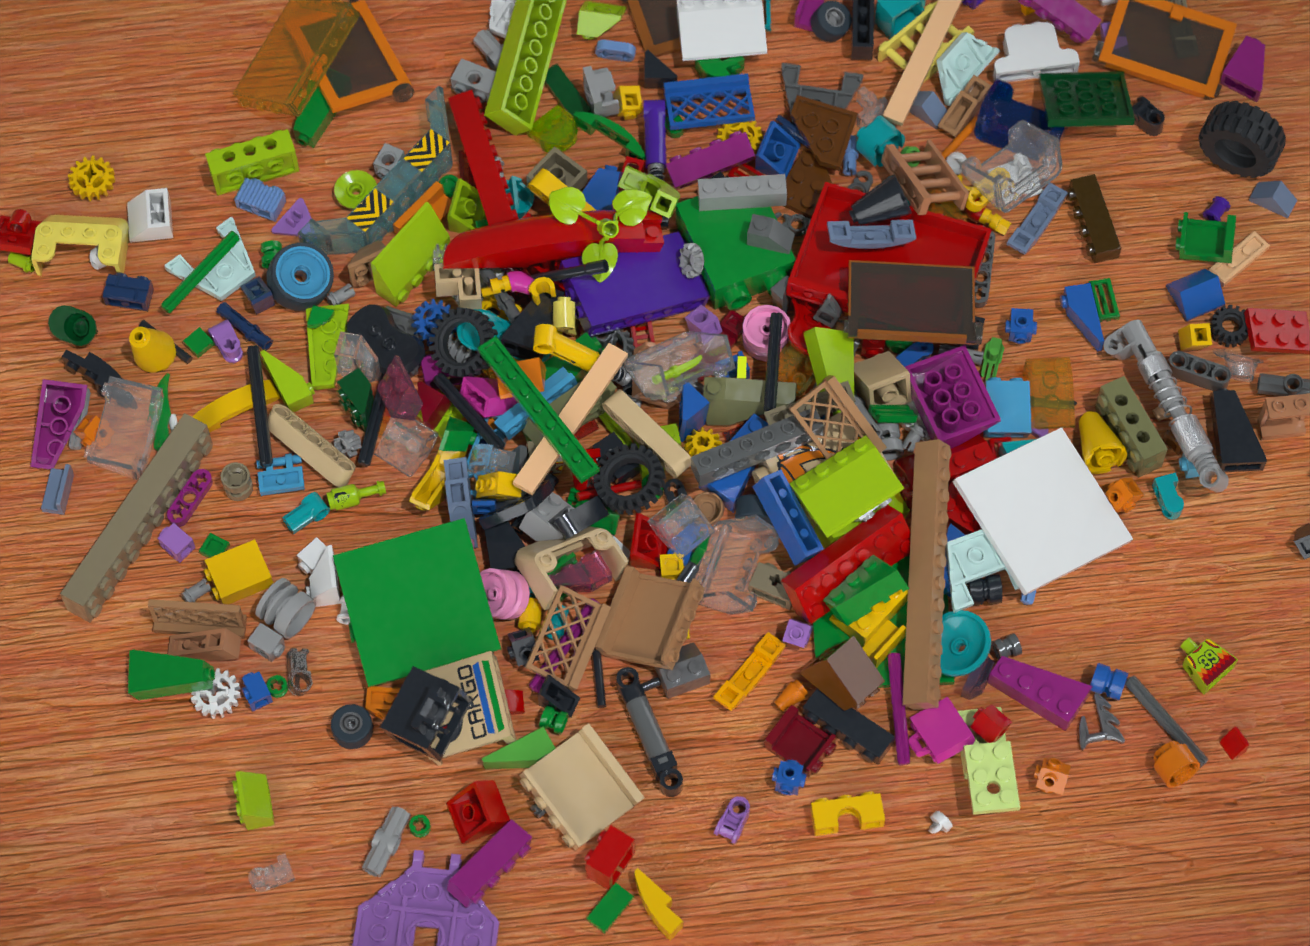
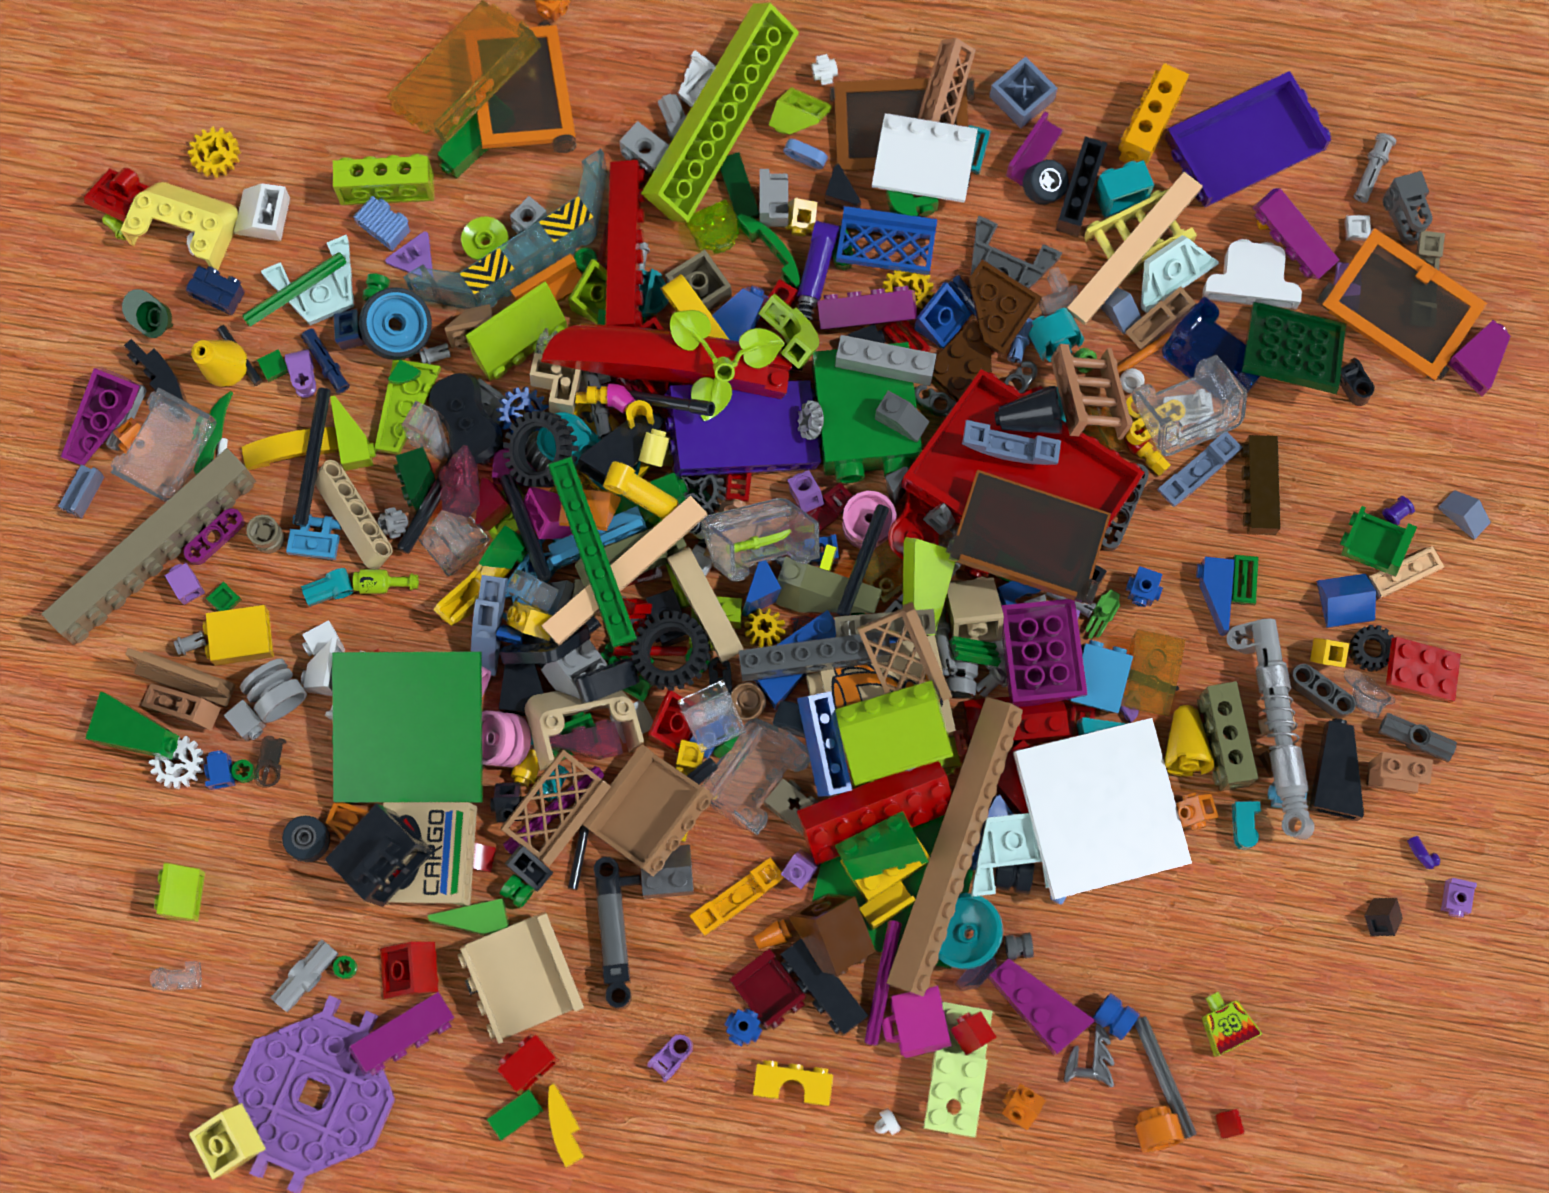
camera: 15 degrees right, 10 degrees up
(1242, 139) = (1450, 442): black tyre -> none

